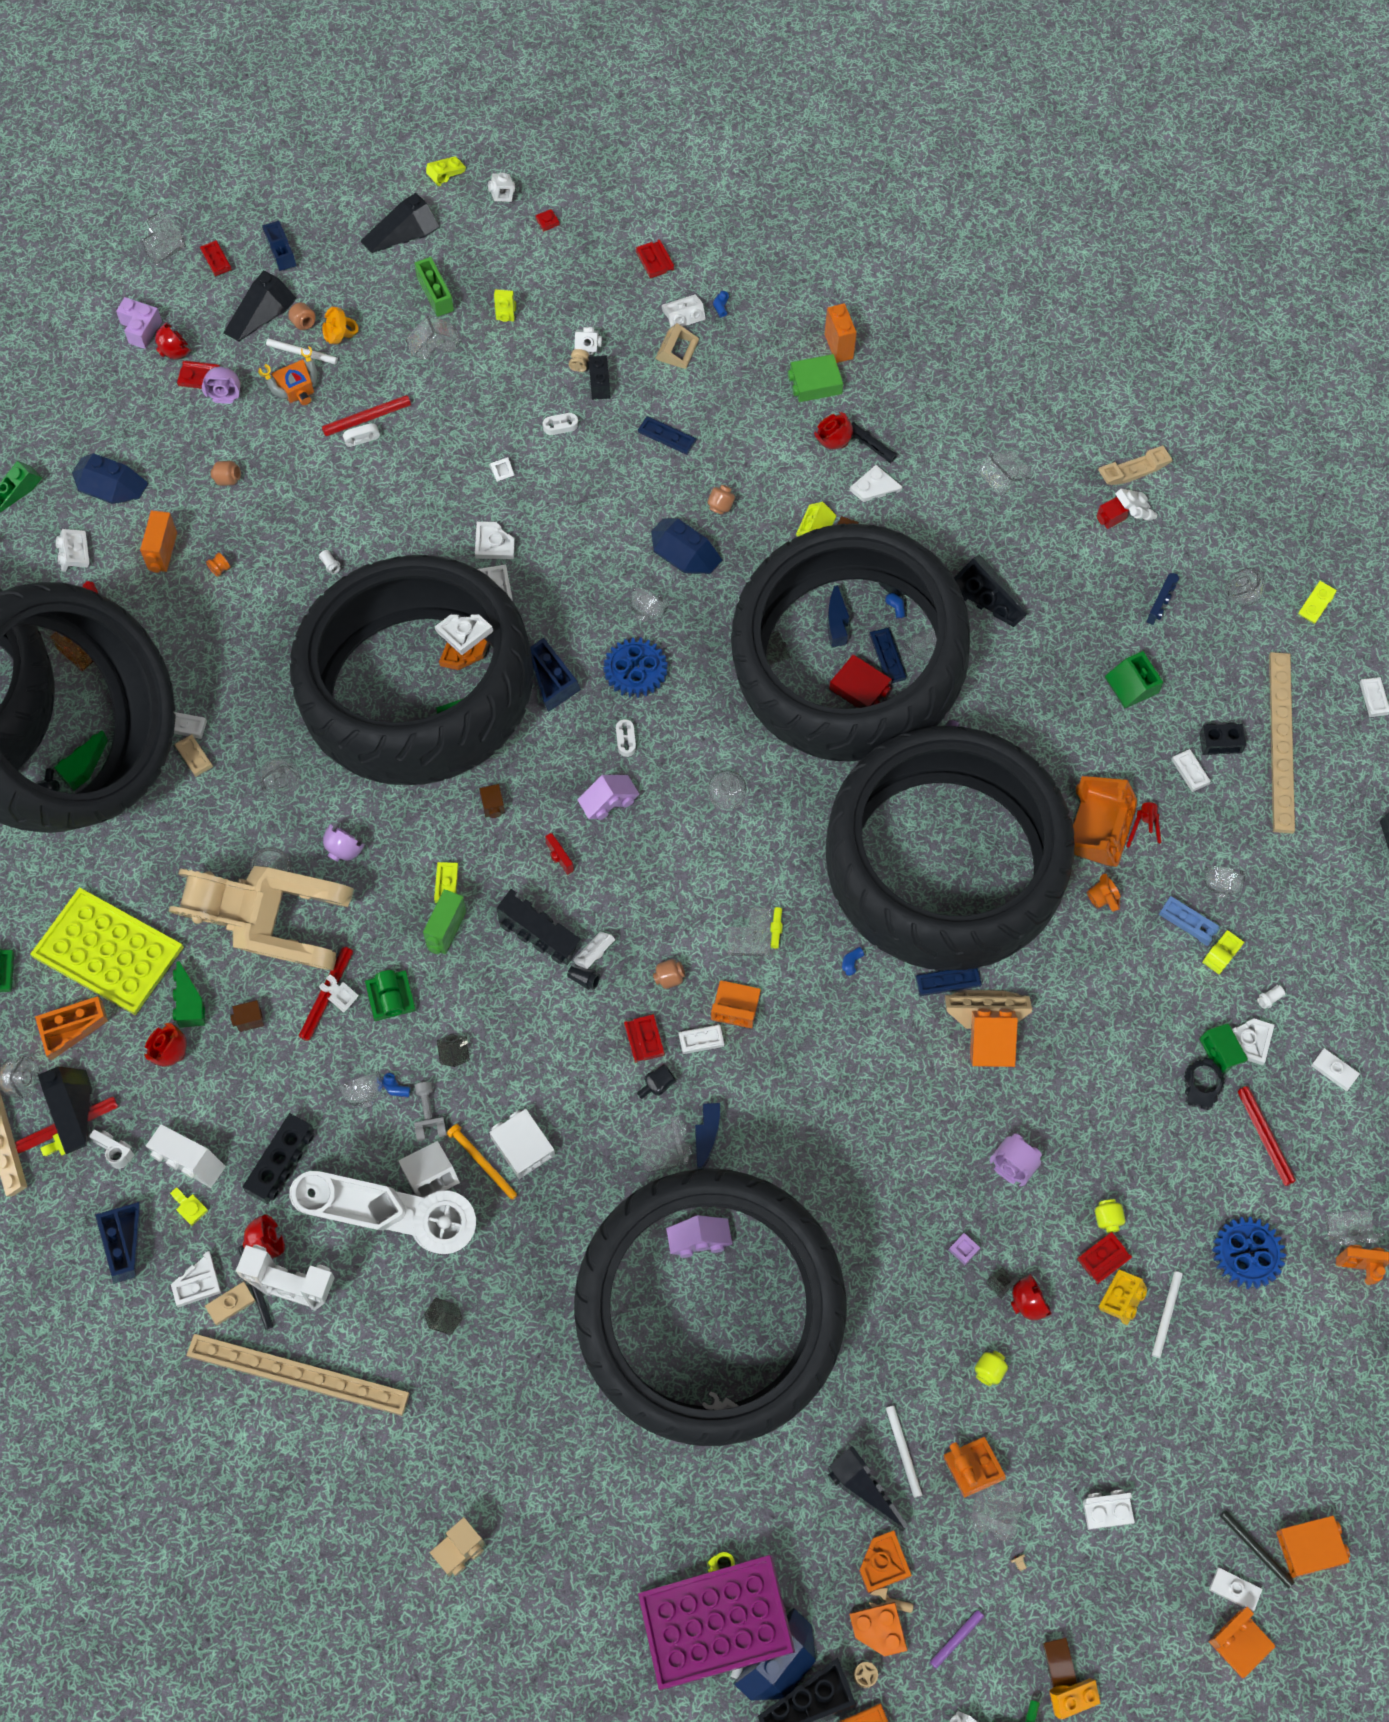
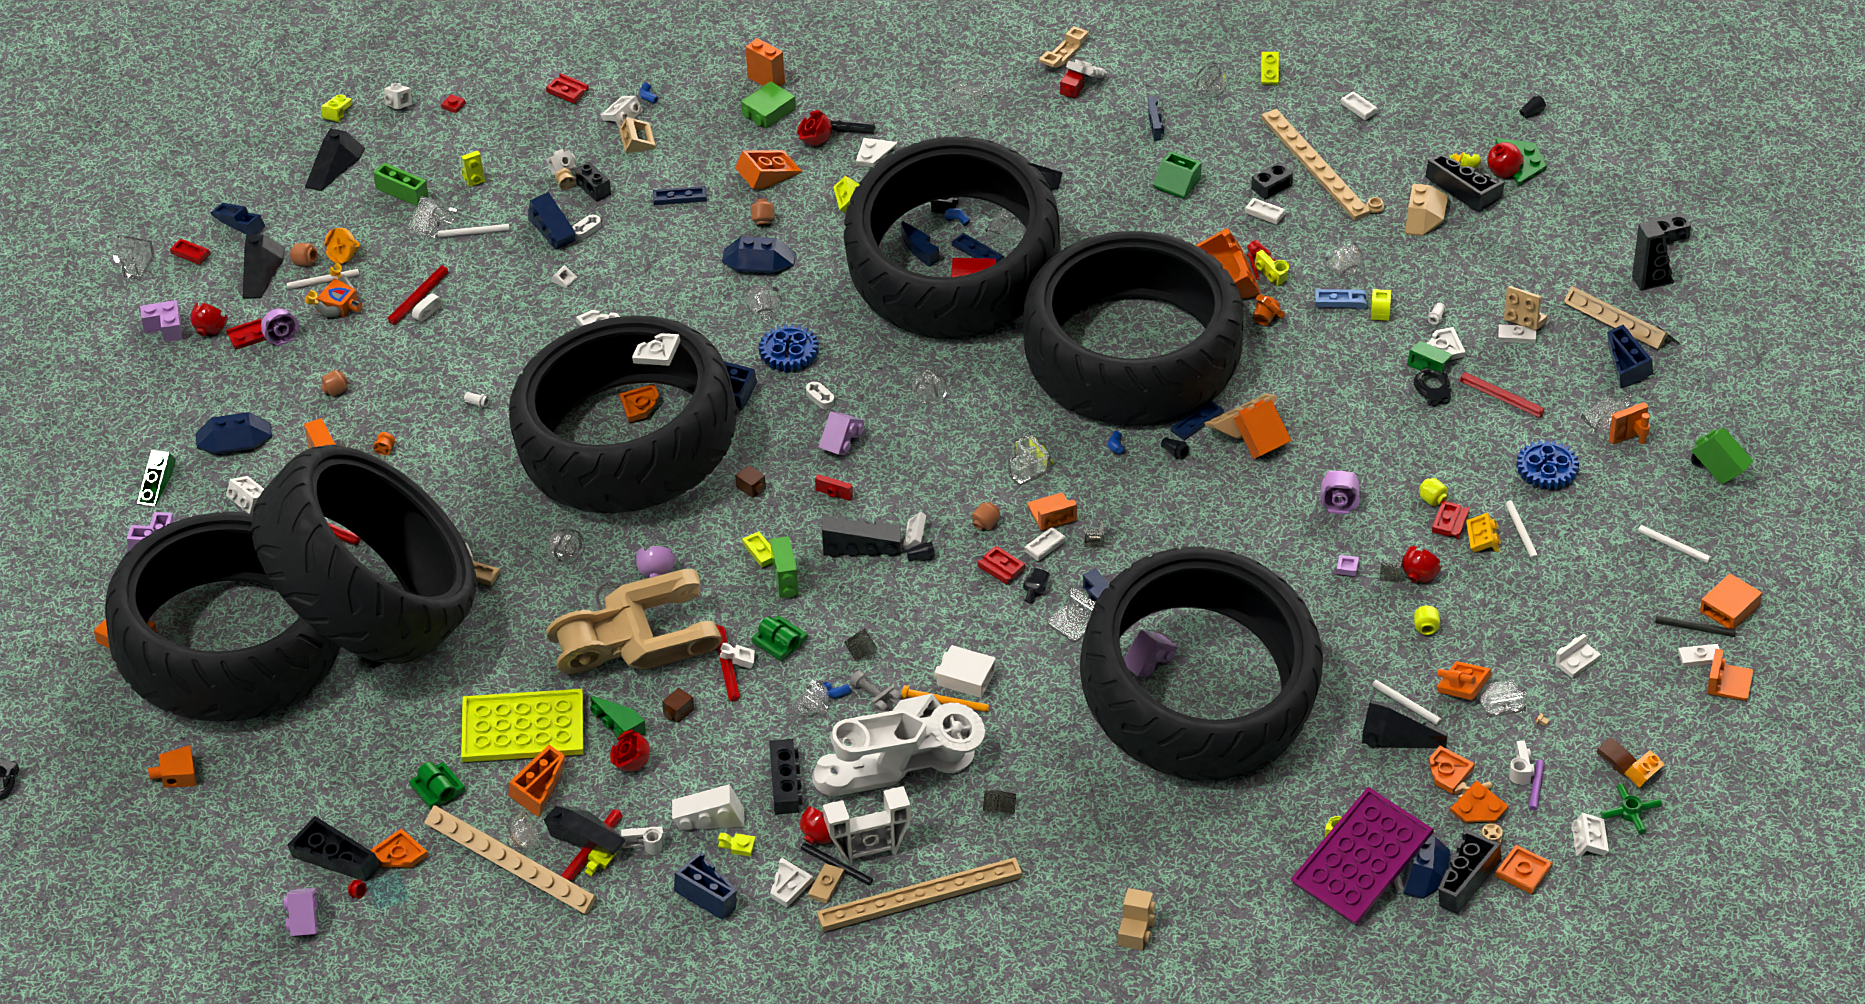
camera: 30 degrees left, 20 degrees down
(463, 371) = (474, 230): none -> white bar
(528, 403) = (550, 221): none -> dark blue wedge
(753, 1059) = (1095, 537): none -> clear smoke panel
(764, 449) = (766, 167): none -> orange slope
(902, 1003) = (1177, 448): none -> black cone
(966, 1598) = (1520, 767): none -> white plate
(1142, 836) = (1275, 271): none -> neon yellow plate
(1304, 827) = (1375, 205): none -> tan plate
(1310, 1434) = (1674, 544): none -> white bar
(1351, 861) = (1425, 209): none -> tan wedge
(1357, 1052) = (1523, 308): none -> tan bracket

